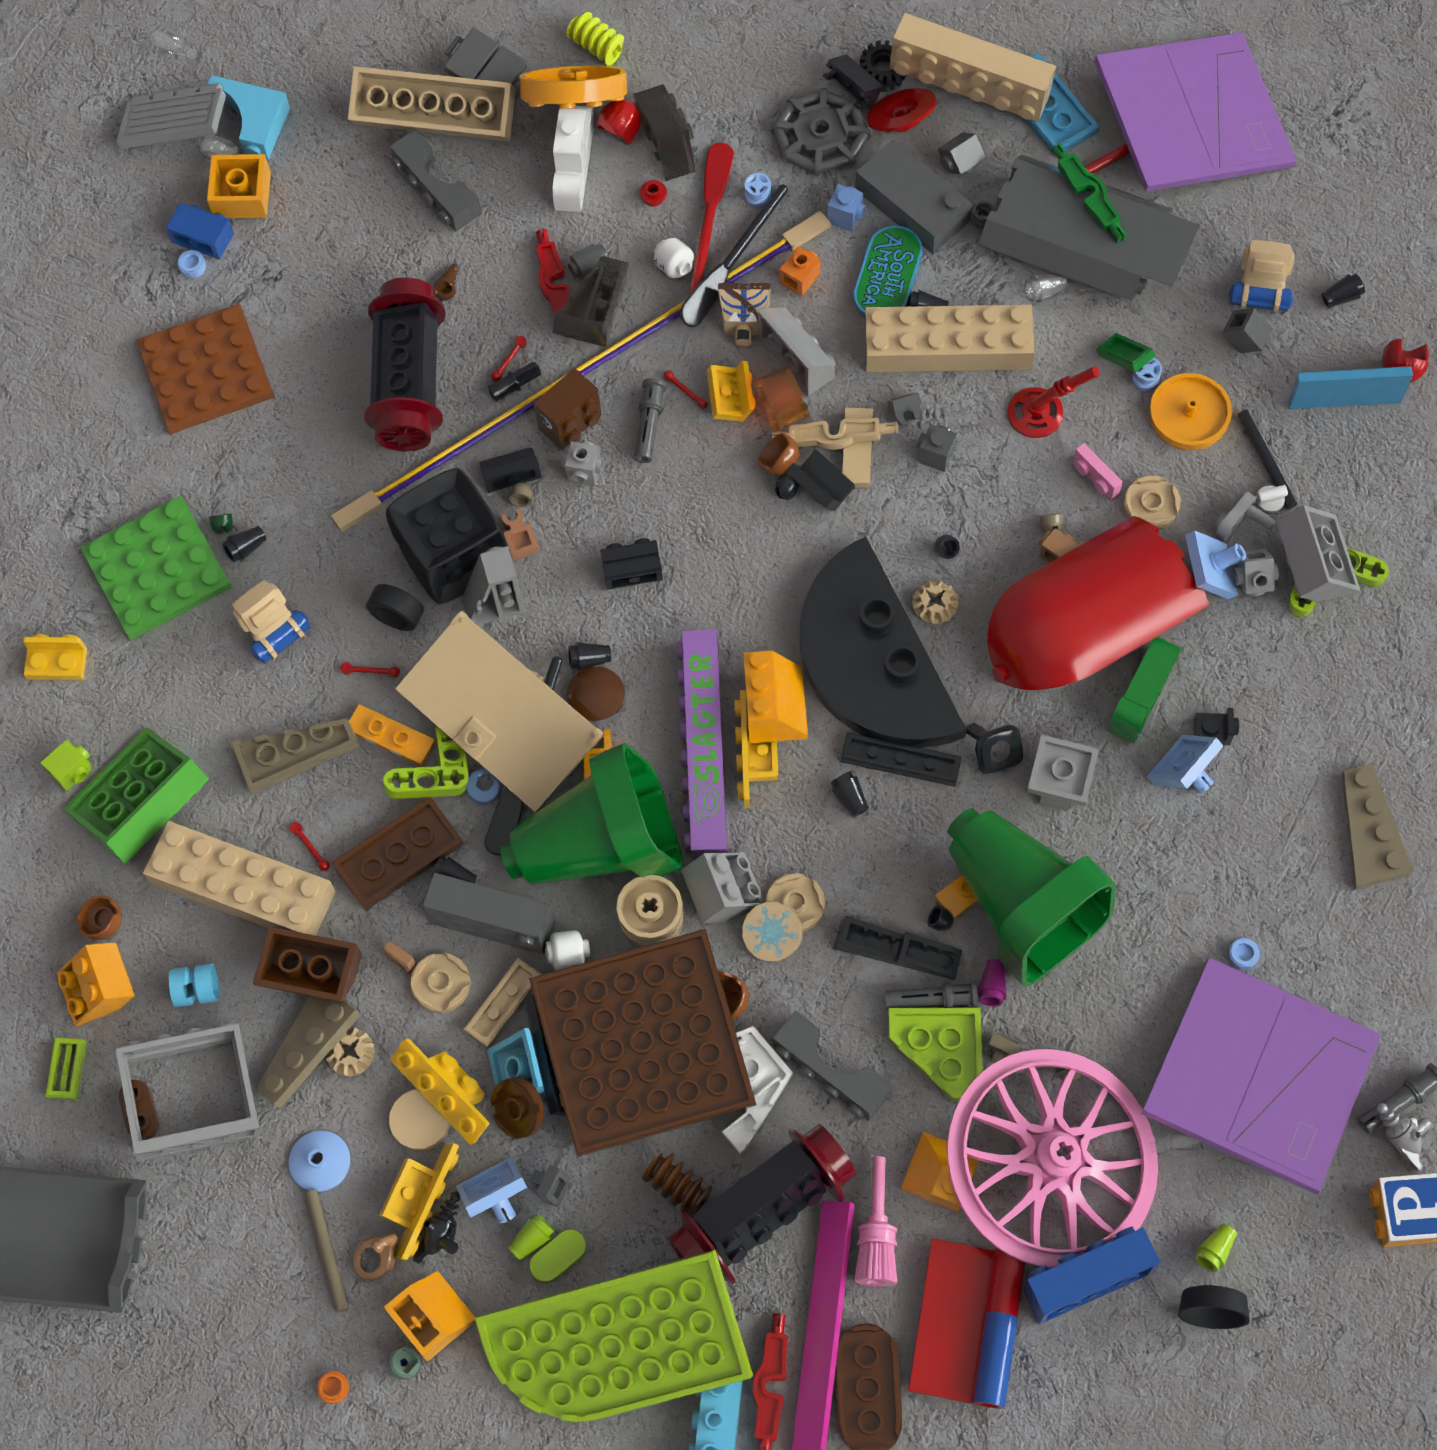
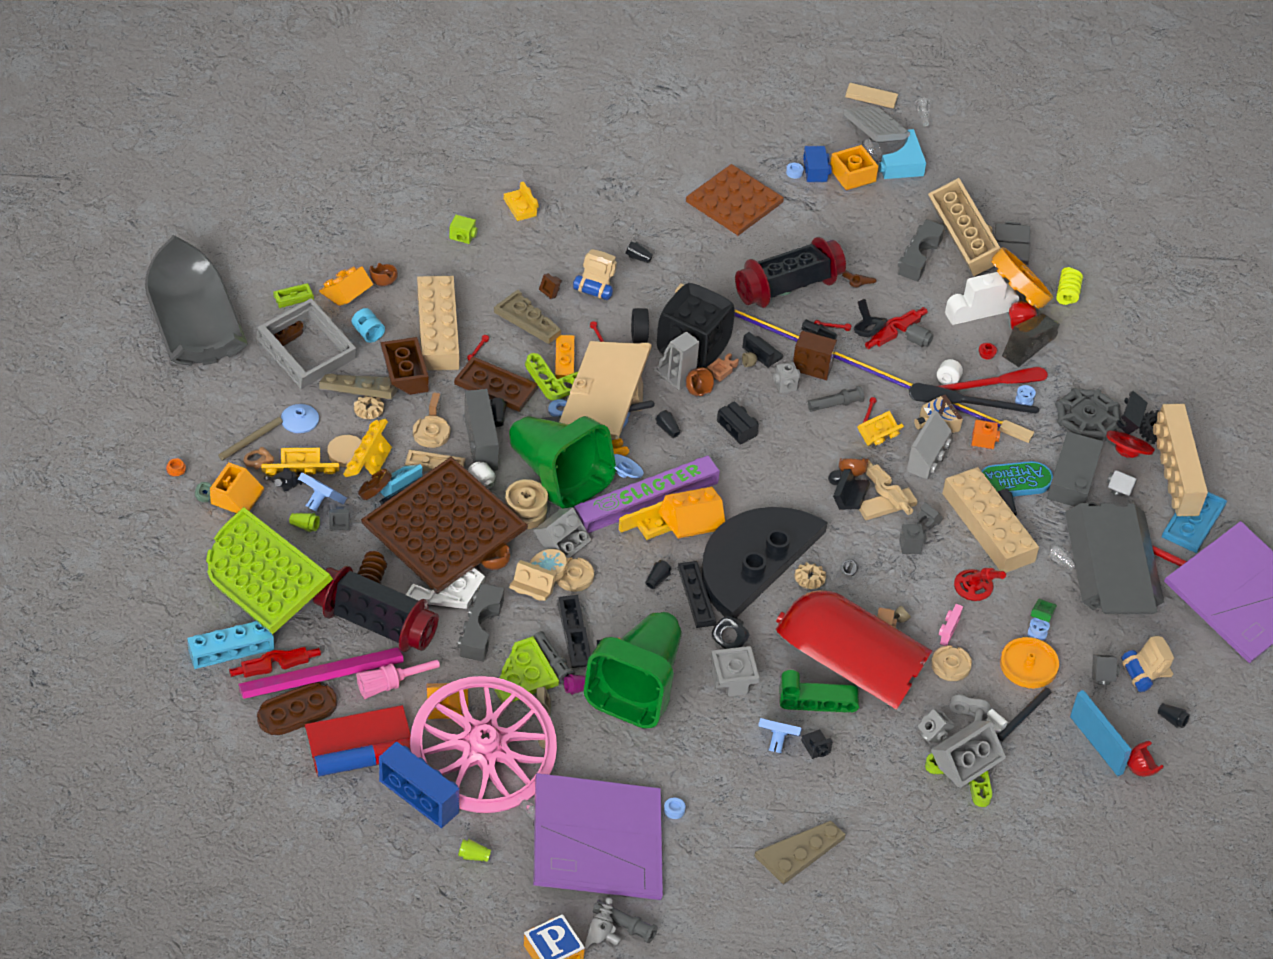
camera: 55 degrees right, 20 degrees down
(102, 94) = (871, 95): none -> tan tile
(136, 794) = (463, 262): bright green slope -> none
(155, 567) = (601, 223): bright green plate -> none
(221, 520) = (645, 240): dark green hinge -> none
(247, 692) = (550, 285): none -> reddish brown tile
(527, 307) = (867, 320): none -> black piece
(536, 579) = (699, 381): none -> dark orange hair
(558, 1256) = (301, 538): lime tile -> none
(594, 304) = (892, 345): clear smoke wedge -> none
(596, 693) = (647, 437): reddish brown dish -> none
(648, 742) = (627, 467): none -> light blue dish
(781, 398) = (890, 450): clear orange brick -> none
(794, 965) = (533, 581): none -> tan bracket
(846, 207) = (1043, 440): medium blue brick -> none
(1097, 203) = (1132, 552): green piece -> none
(1213, 562) = (923, 697): light blue tile -> none
(1214, 1307) = (432, 853): black tyre -> none

